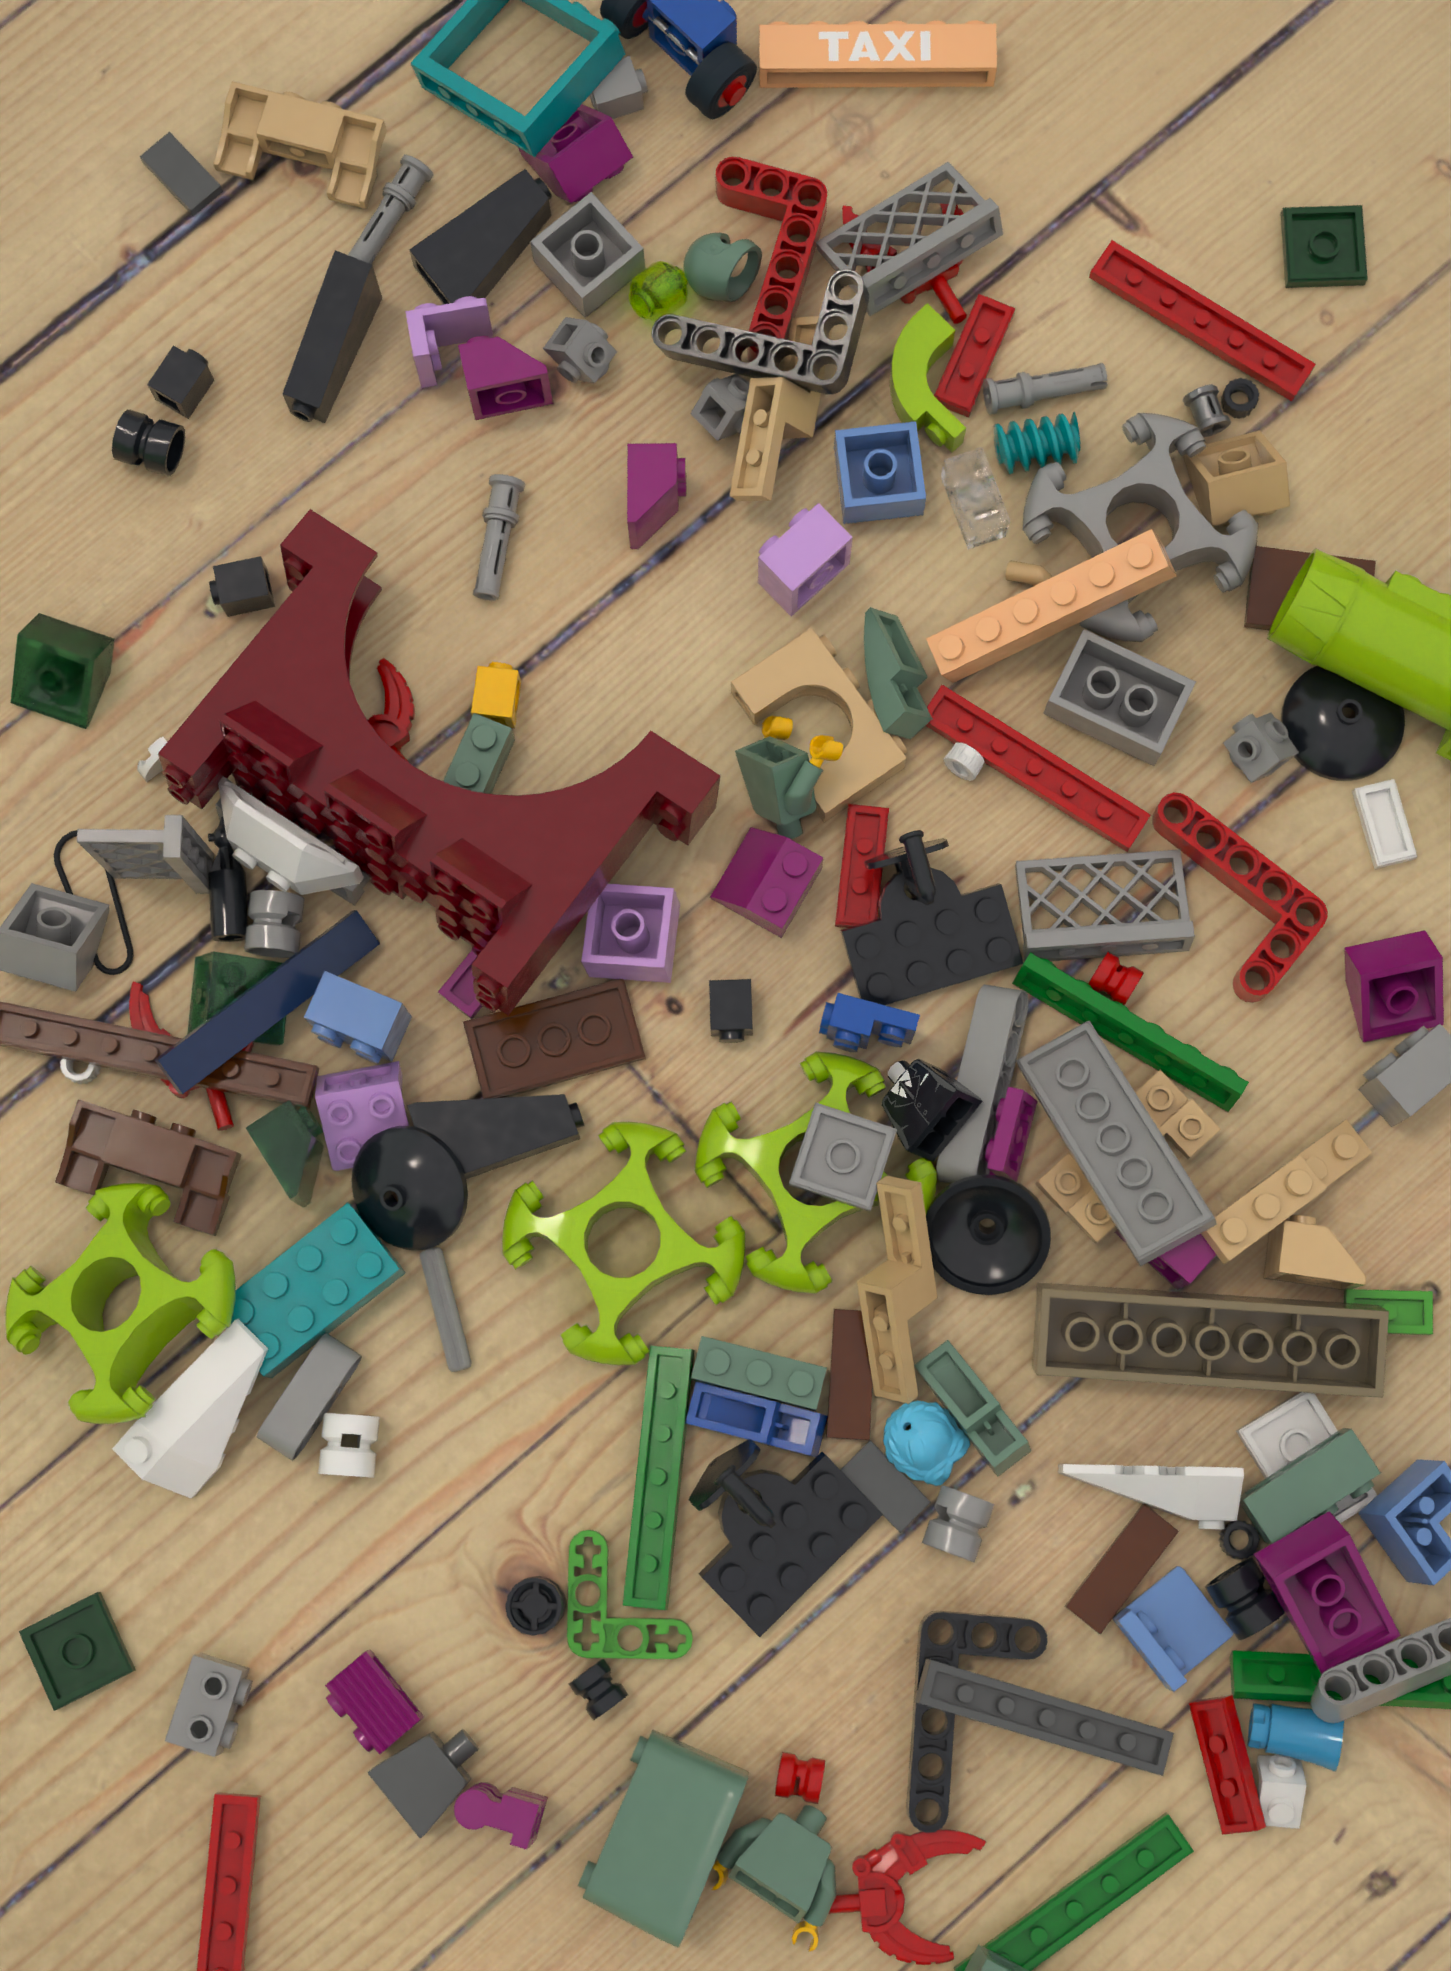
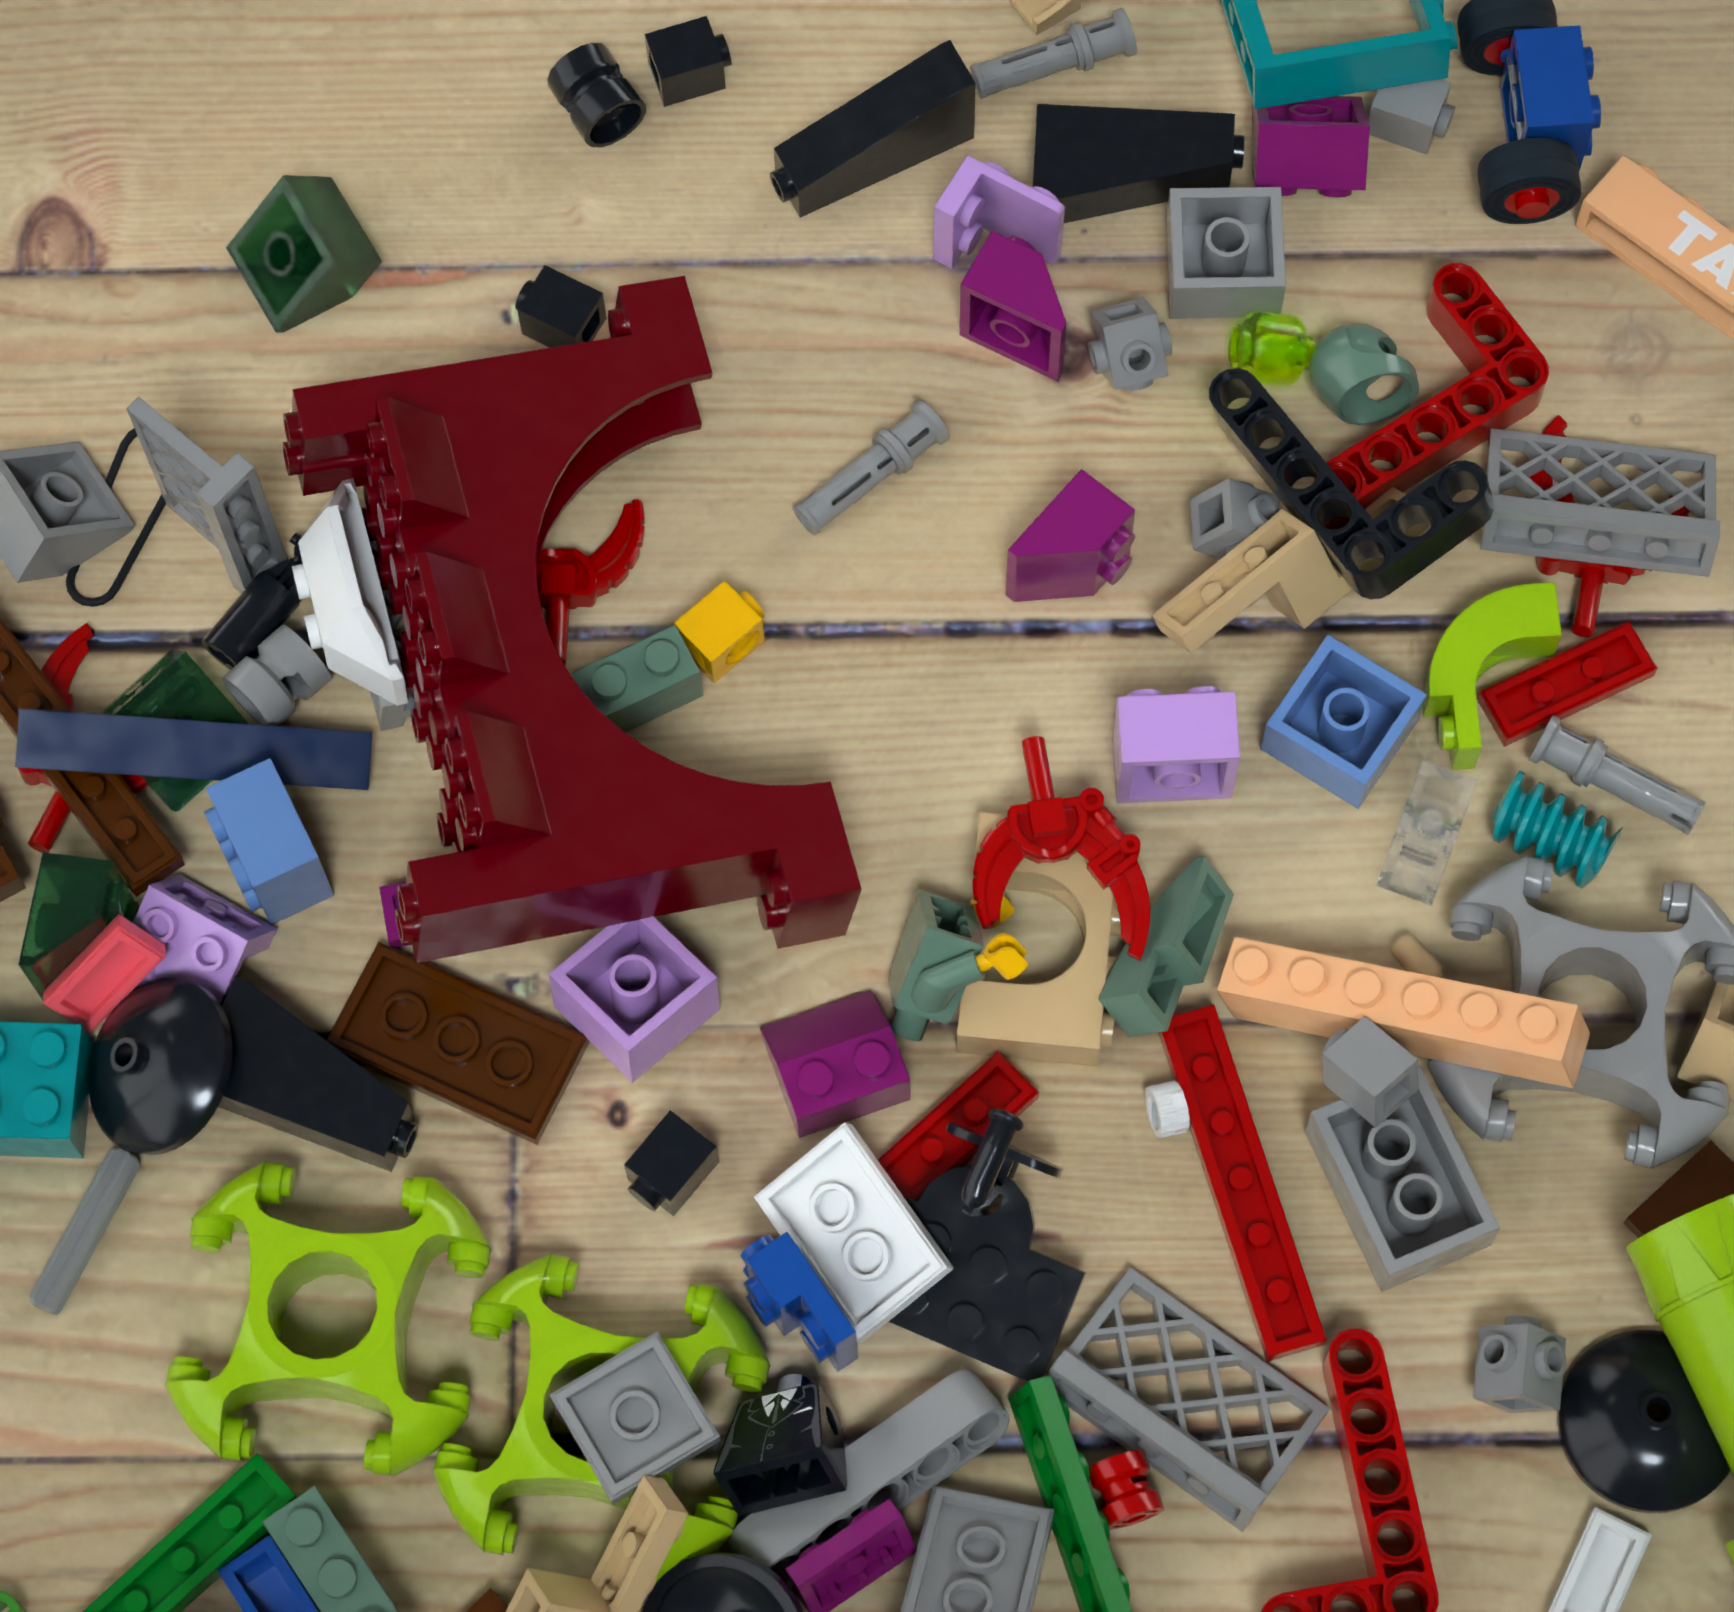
camera: 40 degrees right, 10 degrees down
(333, 1164) = (104, 973): none -> coral tile
(783, 658) = (1054, 831): none -> red bar
(863, 961) = (855, 1230): none -> white tile
(1063, 653) = (1369, 1070): none -> light grey brick

